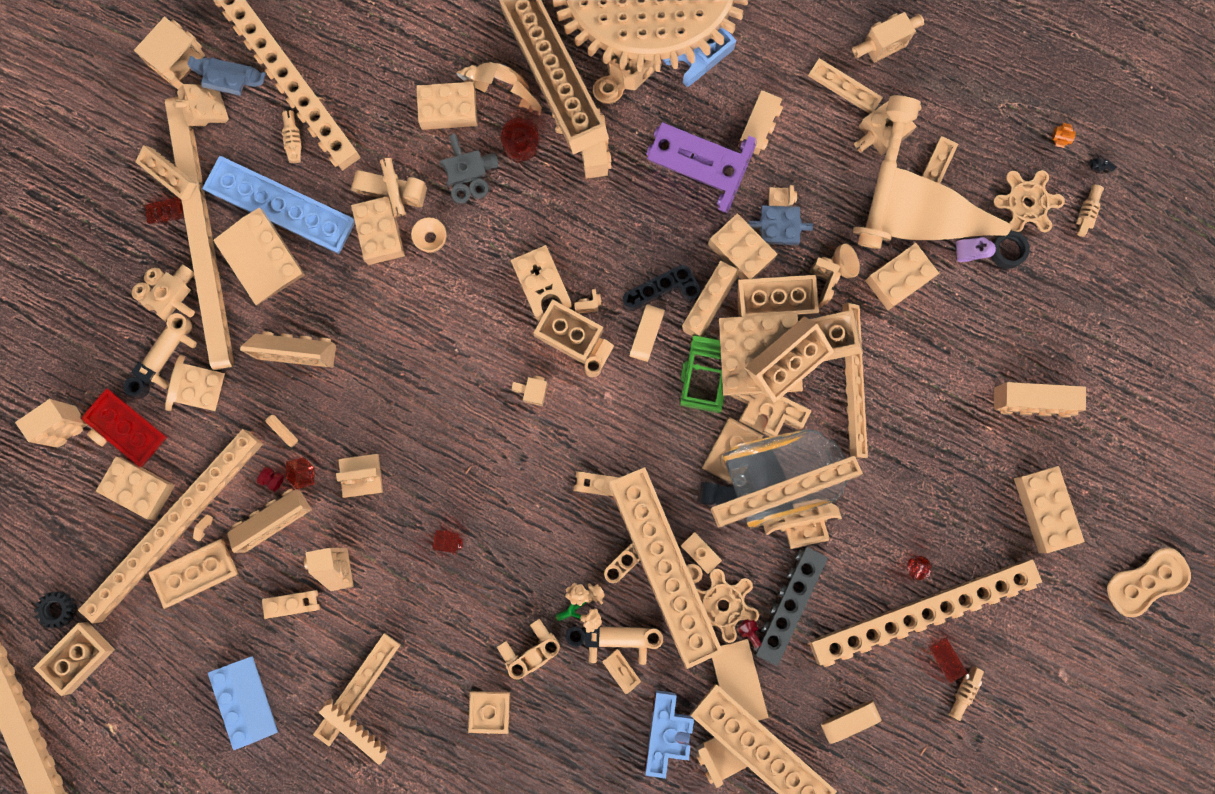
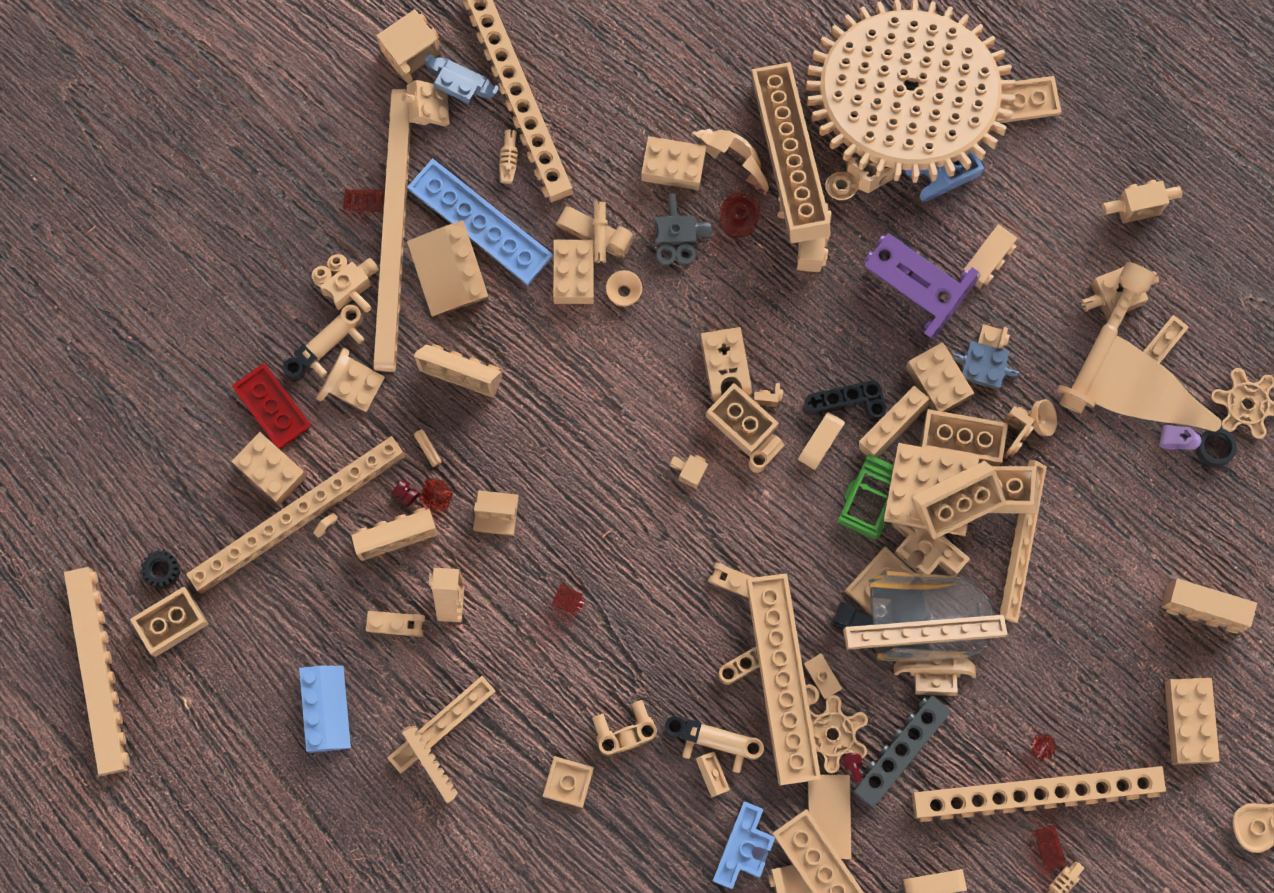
camera: 15 degrees right, 5 degrees down
(51, 423) = (206, 384): light nougat brick -> none
(97, 437) = (242, 409): light nougat tile -> none
(166, 173) = (376, 163): light nougat gear -> none
(193, 573) = (305, 568): light nougat tile -> none
(580, 595) = (689, 682): light nougat plant -> none
(845, 86) = (1086, 240): light nougat plate -> none
(902, 276) = (1097, 447): light nougat brick -> none

